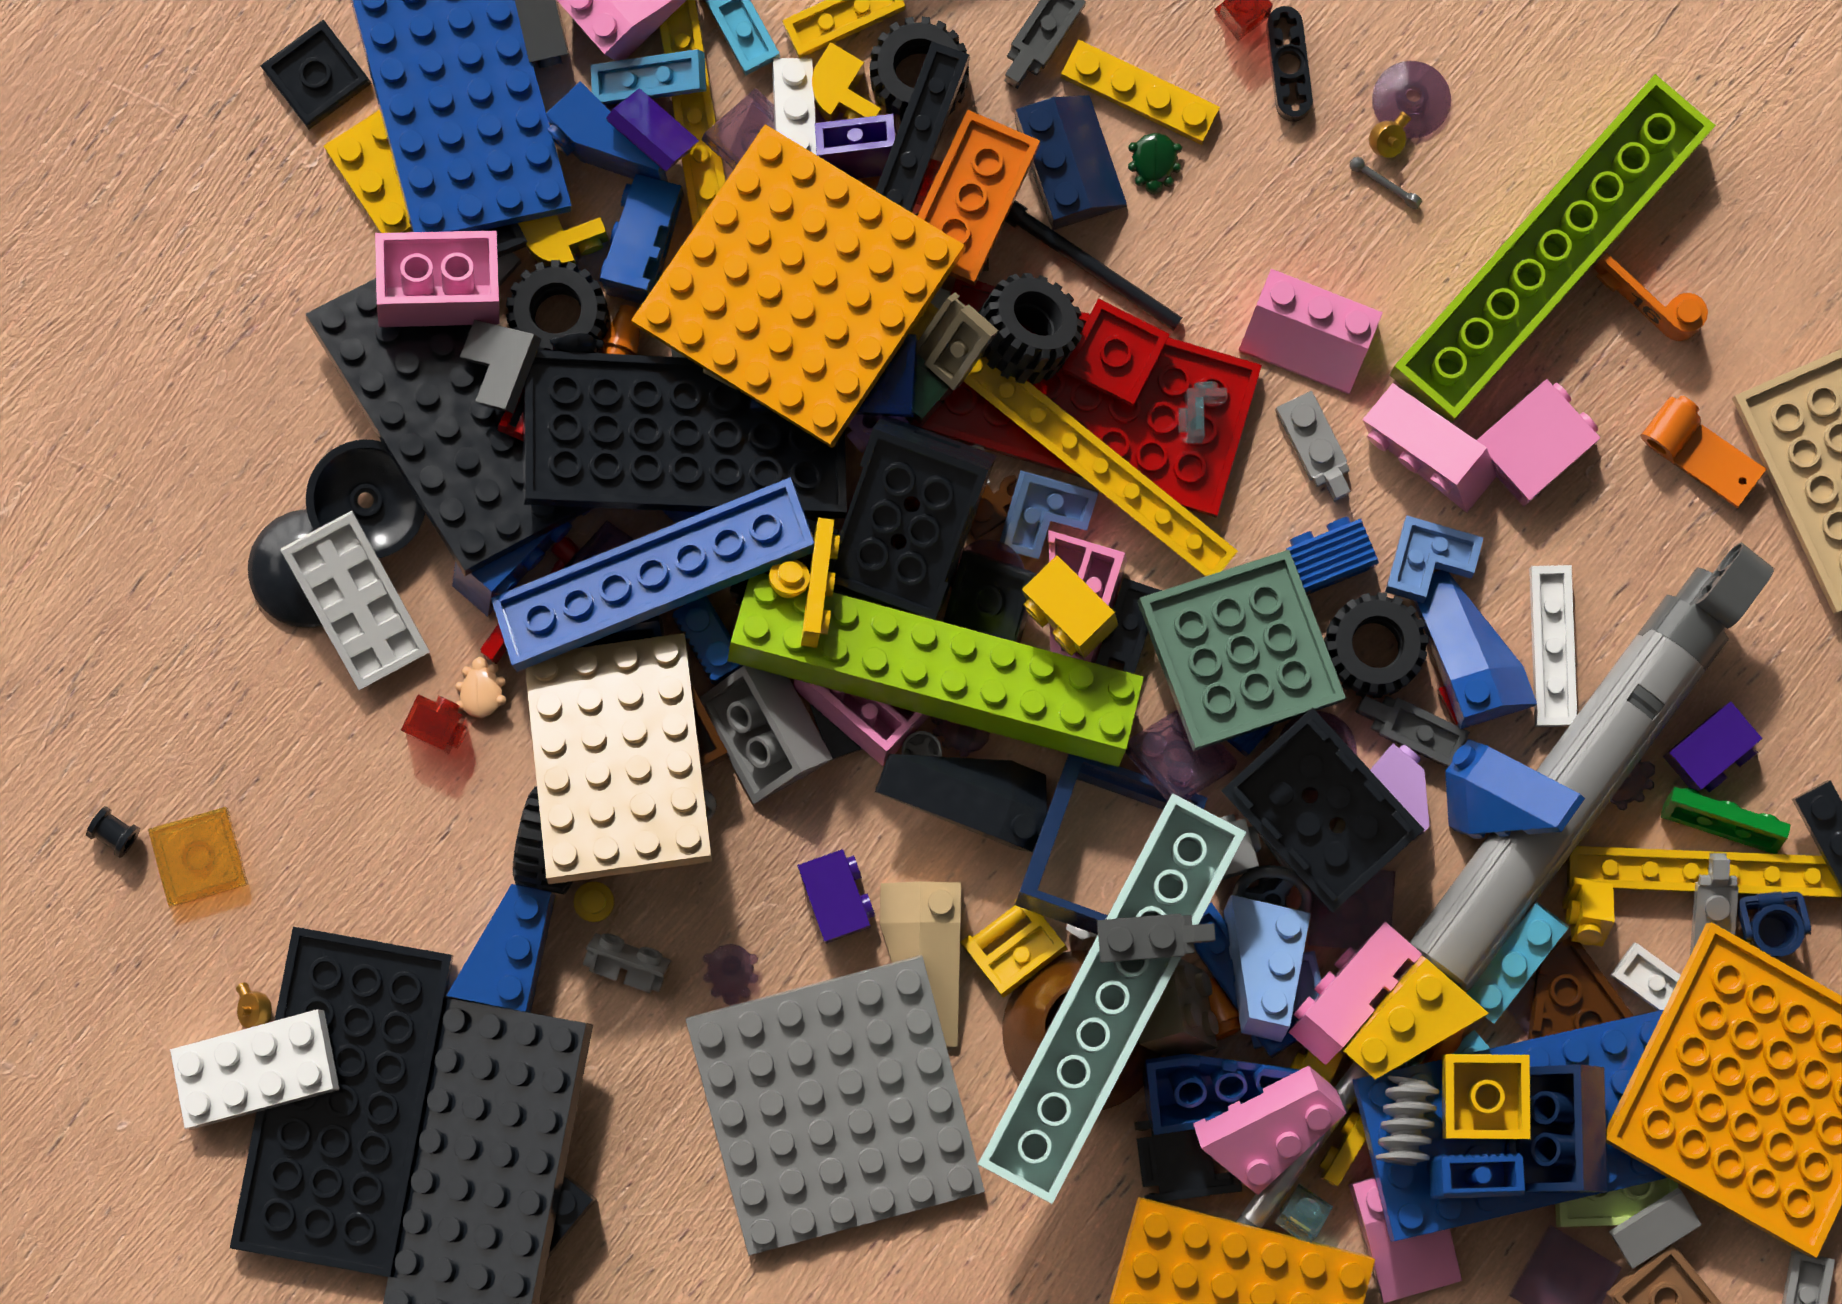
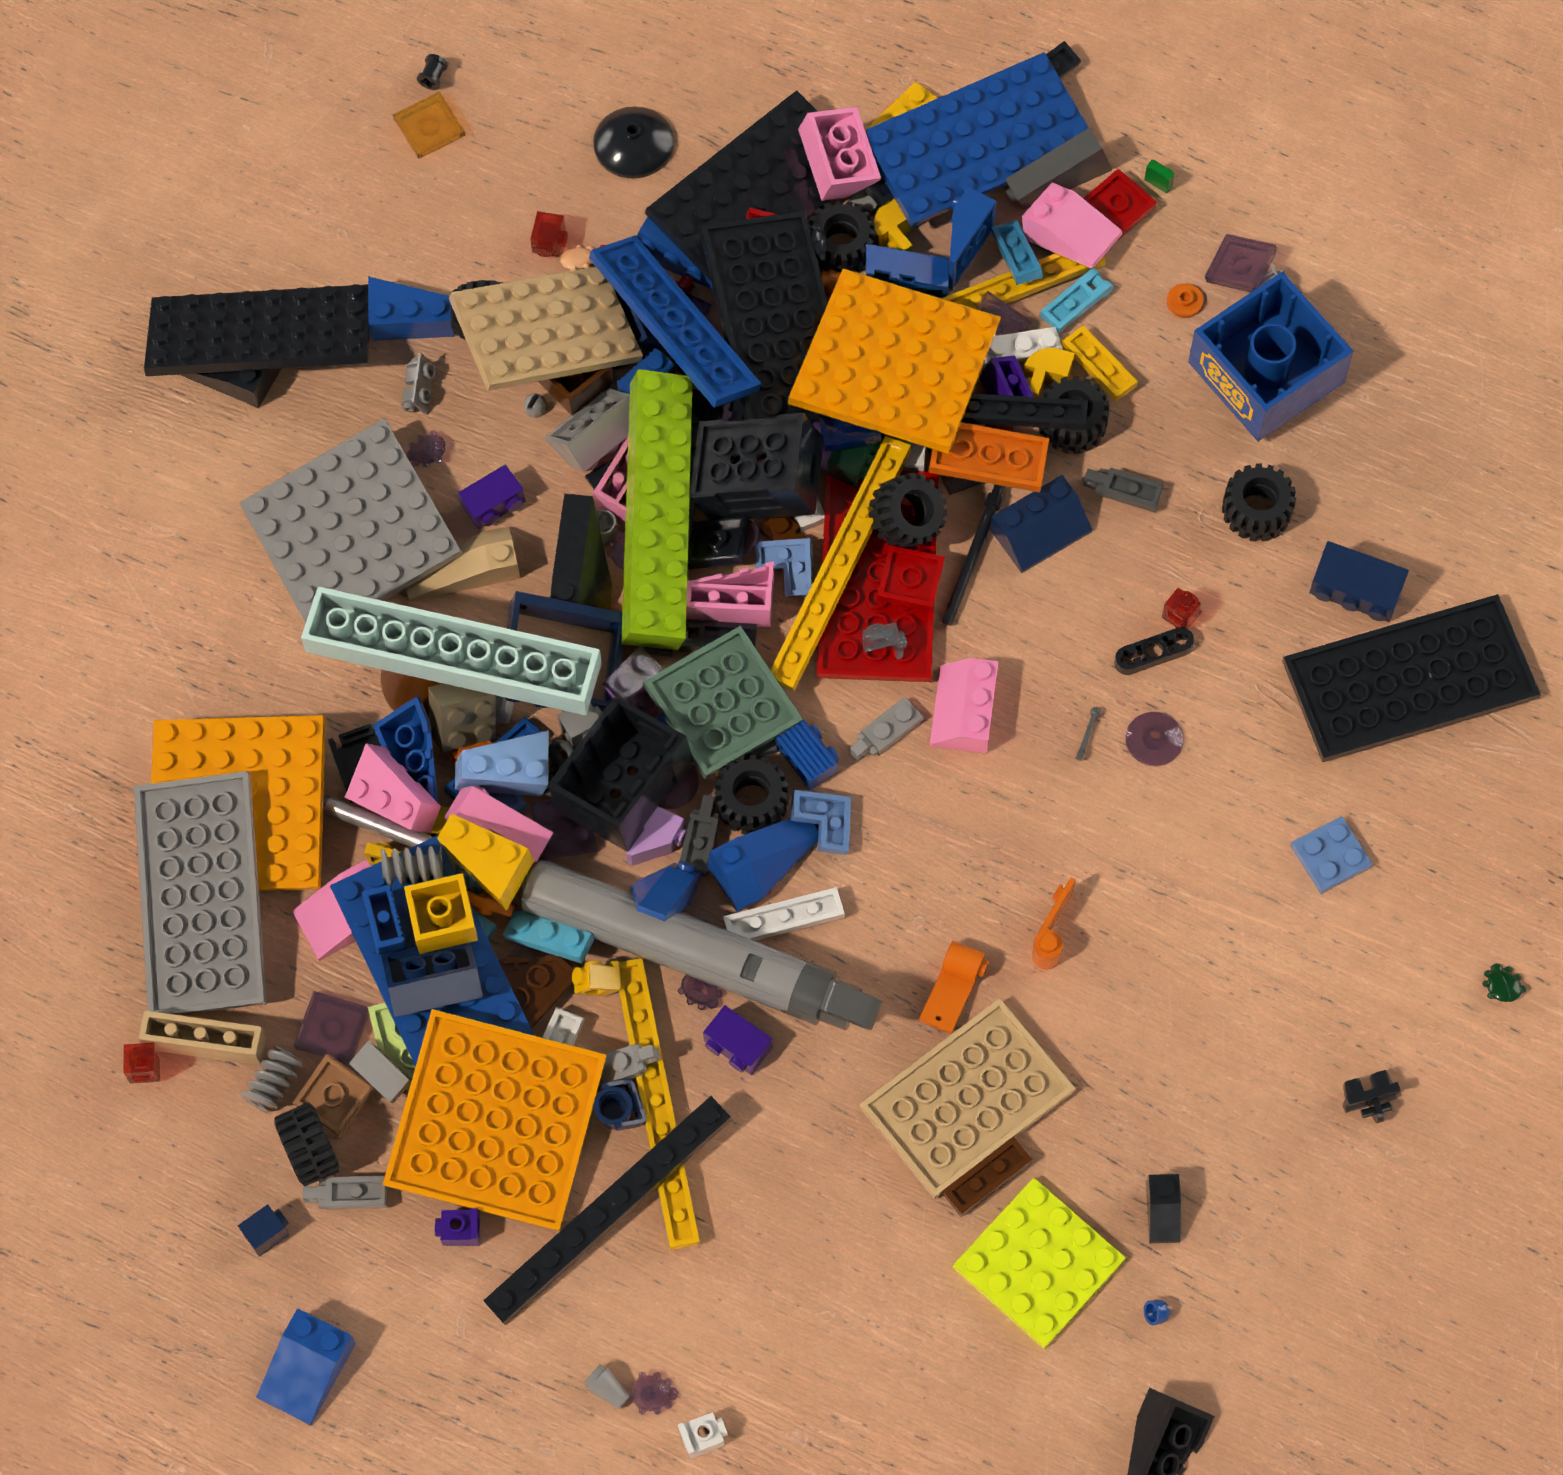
camera: 75 degrees right, 15 degrees down
(253, 1007) = (337, 177): pearl gold piece -> none
(254, 1069) = (297, 184): white plate -> none
(316, 74) = (961, 64): black tile -> none
(336, 1168) = (288, 240): black plate -> none
(355, 600) = (616, 165): white plate -> none
(360, 469) = (676, 142): black dish -> none
(508, 358) = (798, 201): tile -> none
(593, 901) = (454, 356): yellow plate -> none
(652, 129) = (977, 254): dark purple tile -> none
(789, 578) = (690, 395): yellow plate -> none
(820, 584) = (691, 410): yellow plate -> none
(955, 341) = (883, 461): dark tan plate -> none
(1020, 955) = (471, 609): yellow plate -> none
(1069, 607) = (717, 573): yellow brick -> none
(1140, 92) = (1104, 561): yellow plate -> none
(1150, 937) = (495, 654): dark grey hinge -> none
(1154, 161) = (1057, 581): dark green piece -> none
(1303, 1214) = (339, 836): clear light blue bracket -> none
(1389, 137) = (1120, 726): pearl gold piece -> none
(1430, 446) = (901, 800): bright pink wedge -> none
(1538, 440) = (928, 870): bright pink panel -> none
(1552, 250) = (1068, 847): lime brick -> none
(1725, 820) = (687, 1060): green plate -> none

